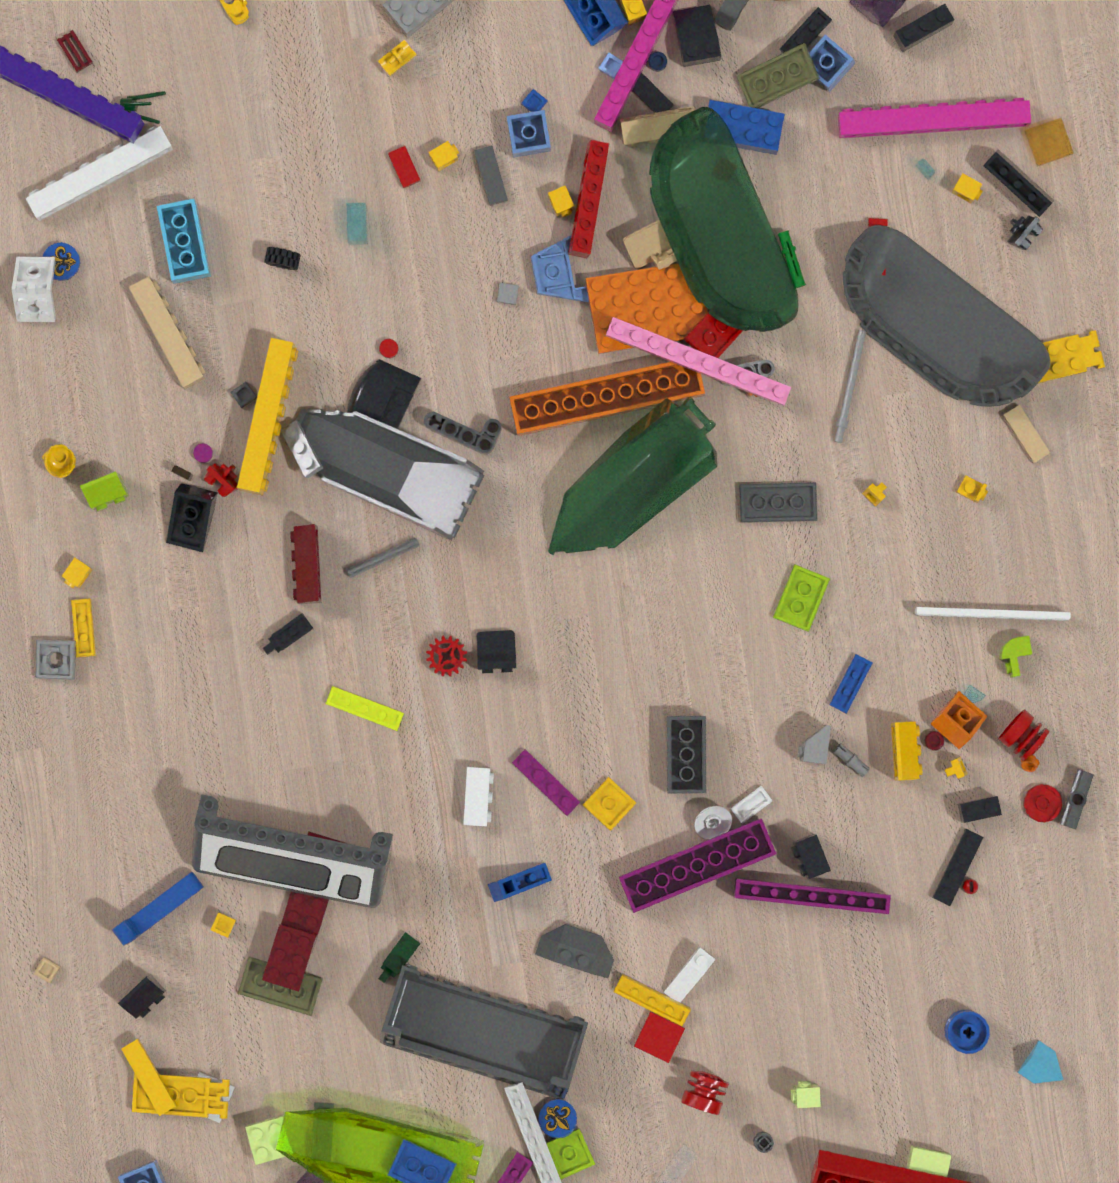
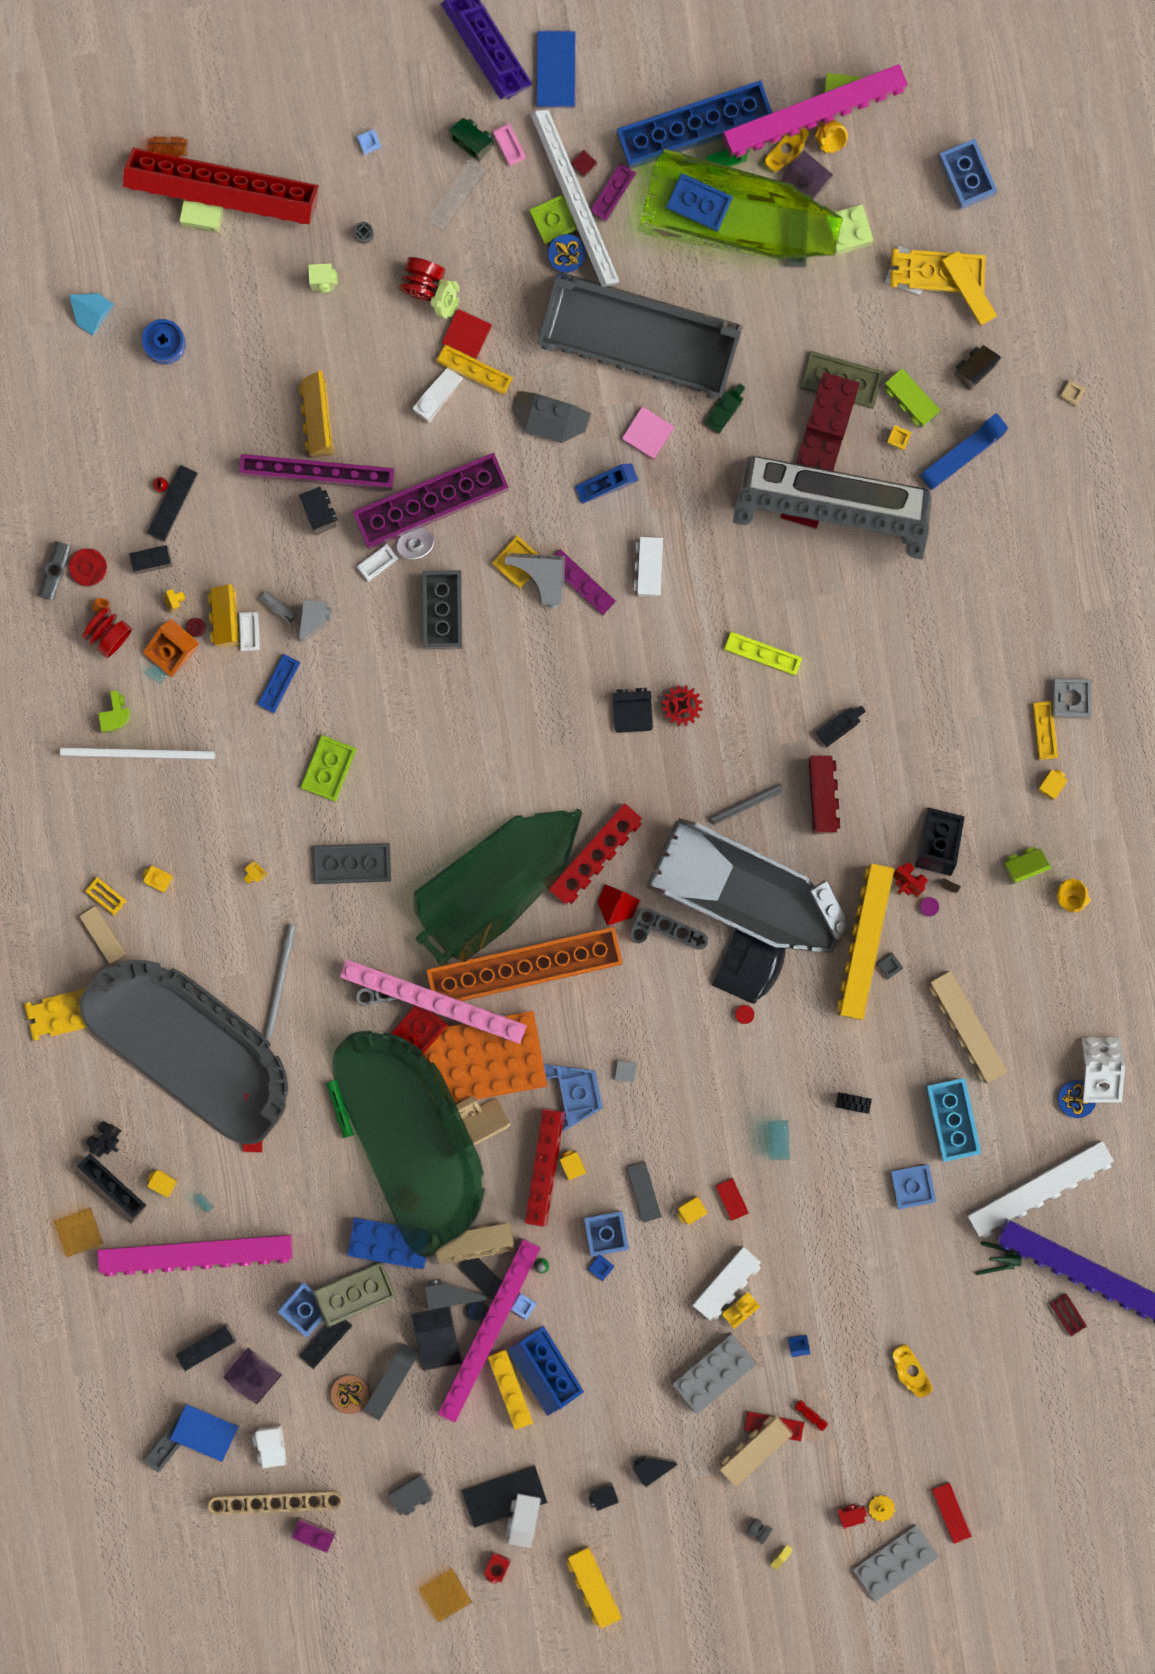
camera: 175 degrees left, 0 degrees up
(210, 965) = (911, 398): none -> lime brick
(224, 177) = (913, 1186): none -> medium blue plate
(340, 23) = (799, 1346): none -> blue plate
(410, 84) = (727, 1283): none -> white brick
(477, 933) = (648, 433): none -> bright pink tile
(505, 547) = (624, 814): none -> red brick
(515, 457) = (616, 905): none -> red slope
(582, 792) = (547, 573): none -> light grey arch
(593, 102) = (541, 1267): none -> green hinge
(680, 1070) = (445, 300): none -> yellowish green plate
(684, 75) = (446, 1294): none -> dark grey slope
(812, 953) = (317, 415): none -> yellow slope
(880, 736) = (249, 631): none -> white tile
(1018, 478) = (118, 906): none -> yellow tile

